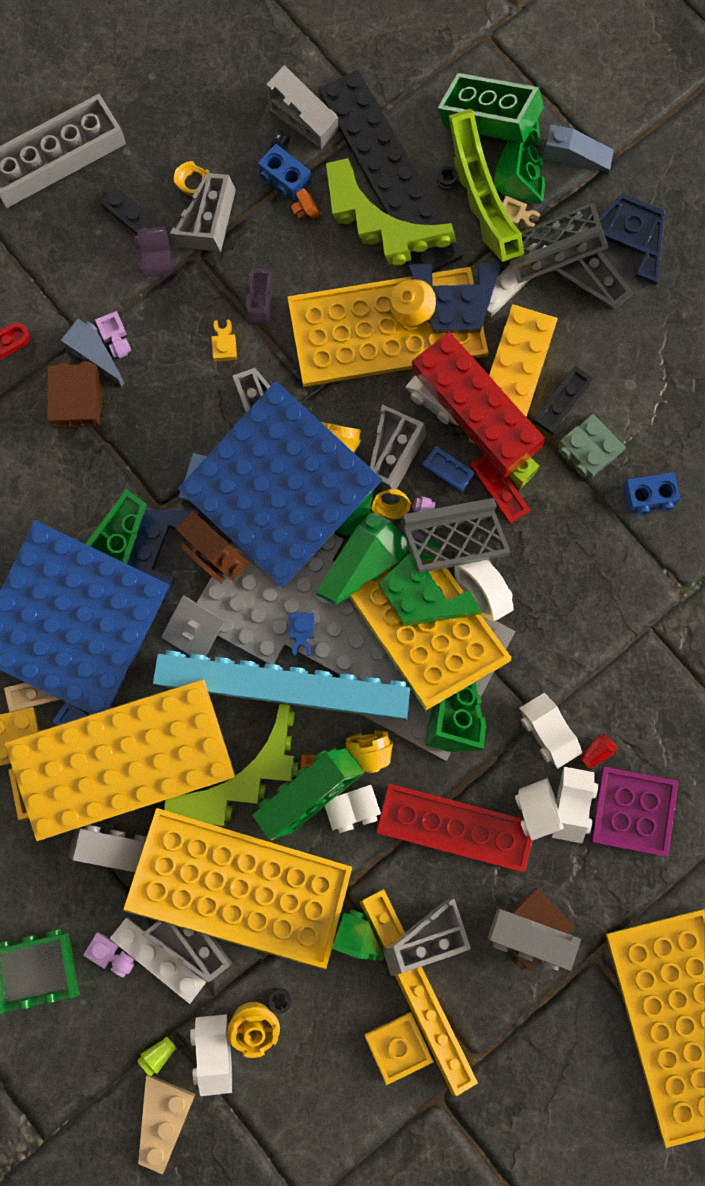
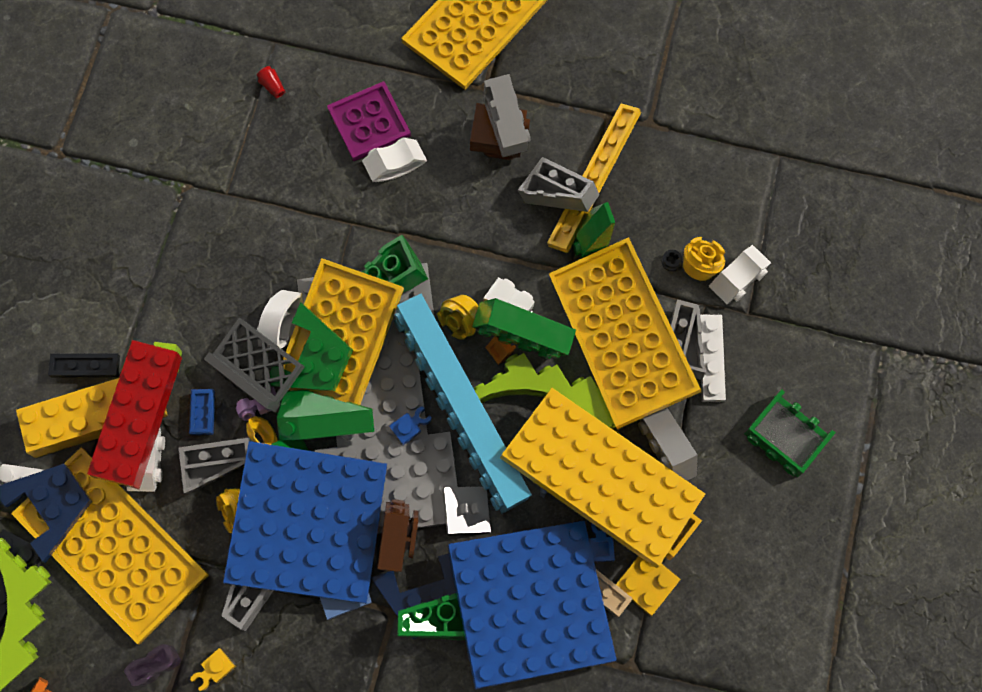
camera: 130 degrees left, 5 degrees down
(103, 951) = (736, 399): lavender plate -> none
(156, 1056) = (772, 311): lime cone -> none
(162, 1120) = (805, 278): tan wing -> none
(398, 1048) = (639, 165): yellow plate -> none
(412, 302) = (76, 531): yellow cone -> none
(454, 827) = (468, 226): red plate -> none
(501, 489) = (192, 363): red plate -> none
(539, 809) = (415, 175): white brick -> none
(550, 730) = (353, 207): white brick -> none
(590, 447) = (111, 321): sand green plate -> none
(599, 750) = (343, 169): red cone -> none
(649, 488) = (117, 256): blue brick -> none

